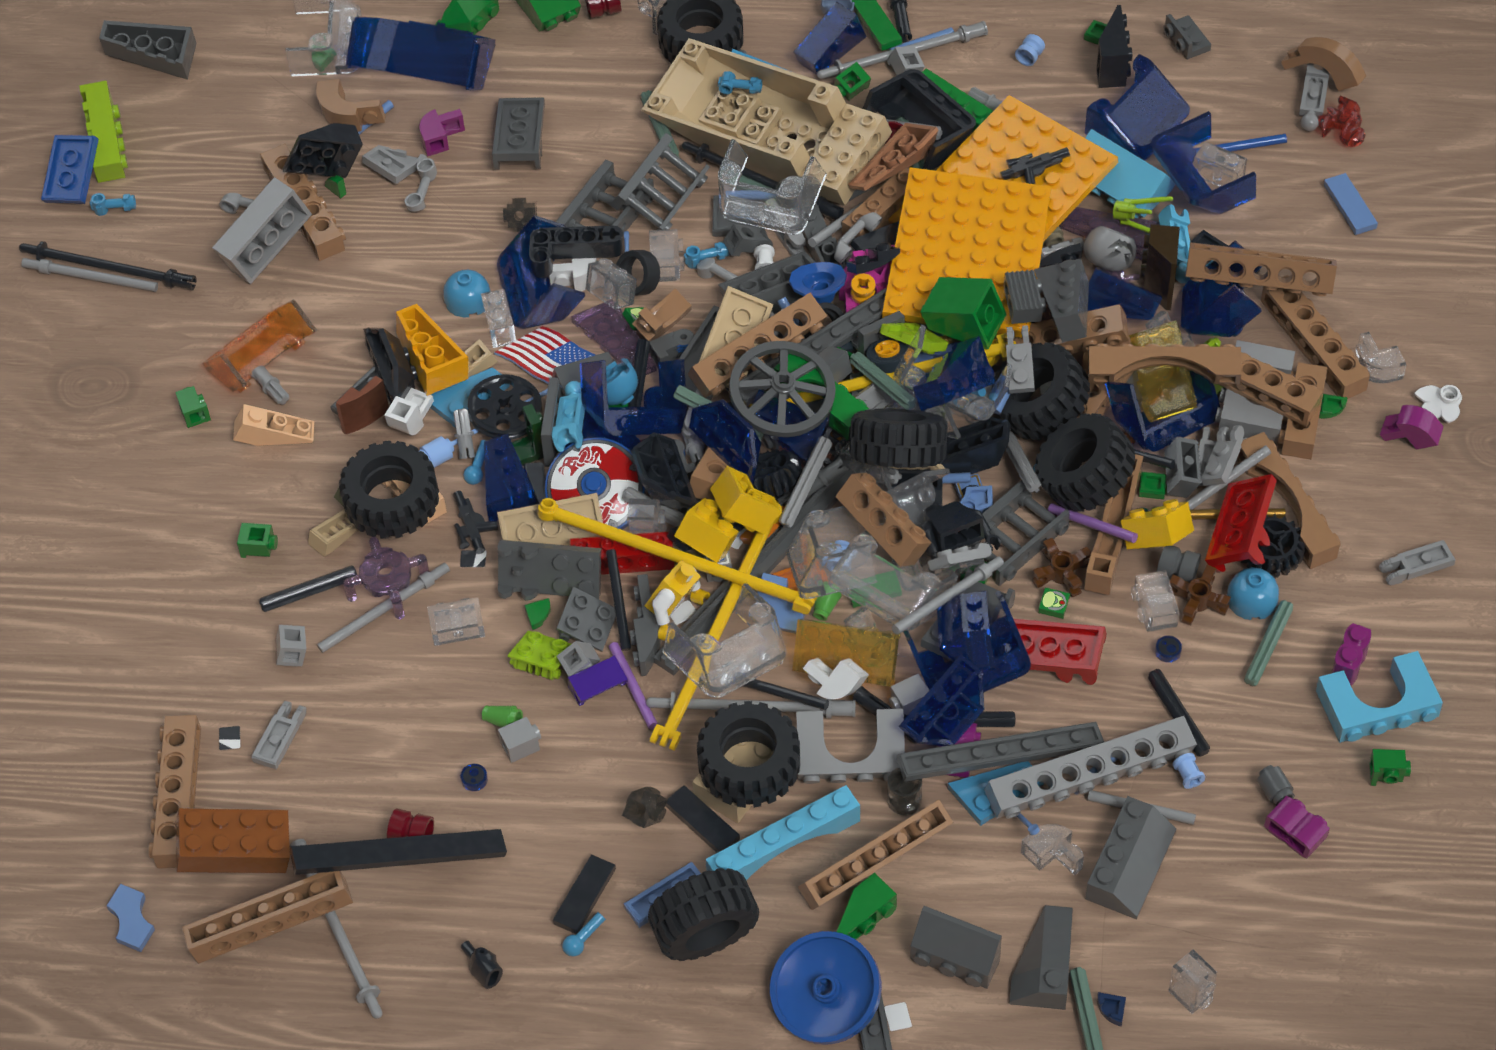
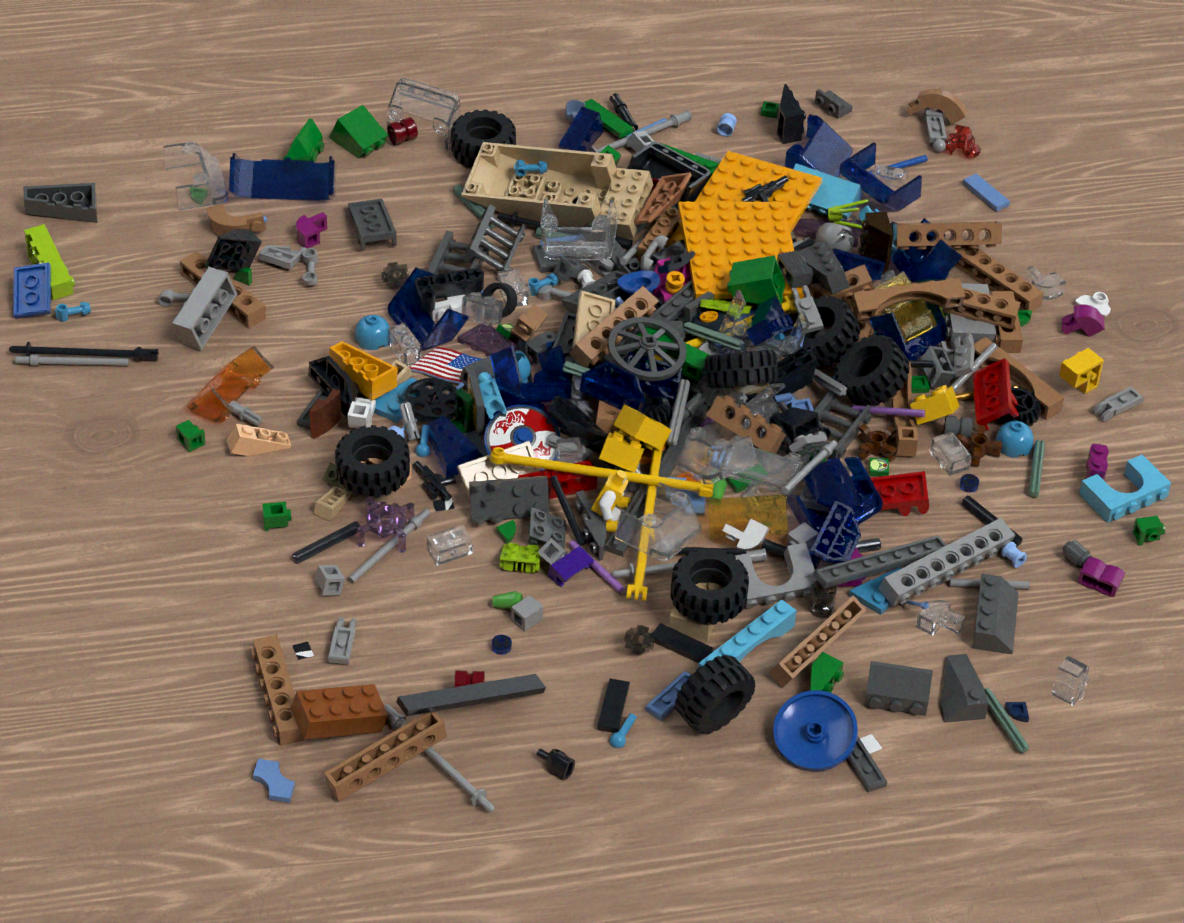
camera: 20 degrees left, 10 degrees down
(1378, 507) = (1082, 370): none -> yellow brick

